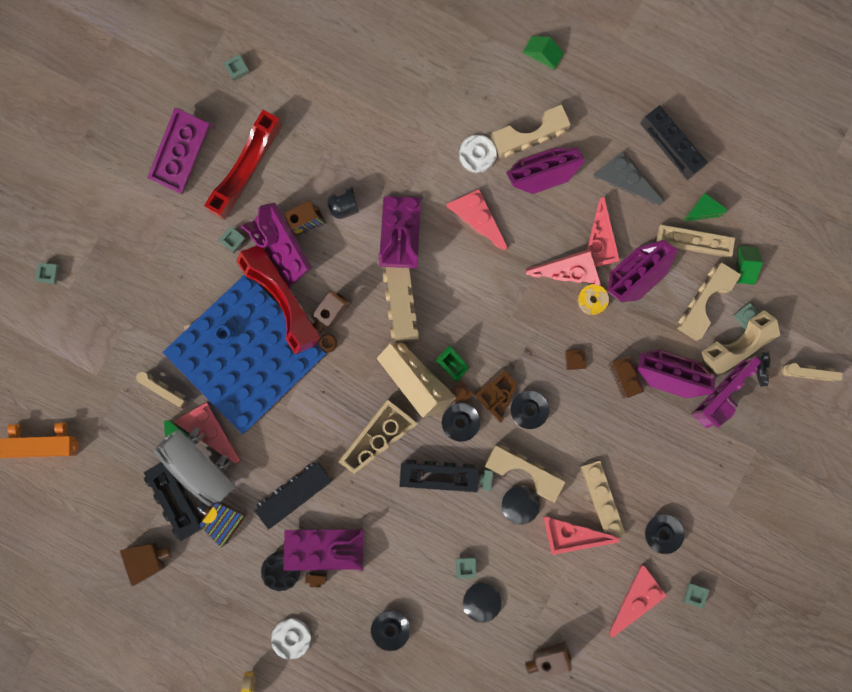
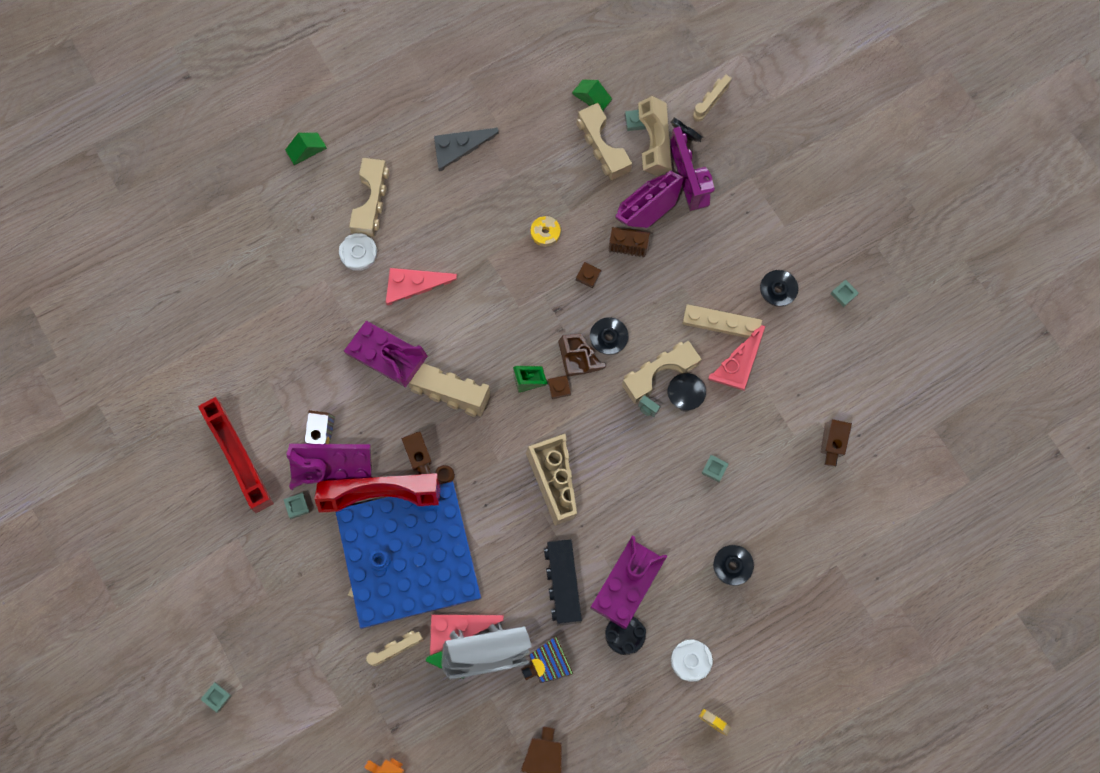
camera: 60 degrees left, 10 degrees down
(179, 150) = (183, 505): magenta plate -> none
(180, 530) = (494, 706): black brick -> none
(236, 67) = (140, 412): sand green plate -> none
(315, 579) = (651, 606): reddish brown plate -> none
(343, 205) = (330, 388): black helmet -> none
(415, 380) = (524, 415): tan wedge -> none
(471, 422) = (587, 390): black dish -> none
(471, 477) = (640, 419): black brick -> none
(482, 602) = (753, 472): black dish -> none
(545, 169) = (409, 202): magenta wedge -> none
(575, 267) = (509, 228): coral wing -> none
(602, 239) = (502, 196): coral wing -> none
(641, 271) = (545, 177): magenta wedge -> none
(642, 596) = (822, 338): coral wing -> none
(673, 142) = (453, 90): black brick -> none
(696, 241) = (546, 123): tan plate -> none
(705, 209) = (524, 99): green slope -> none

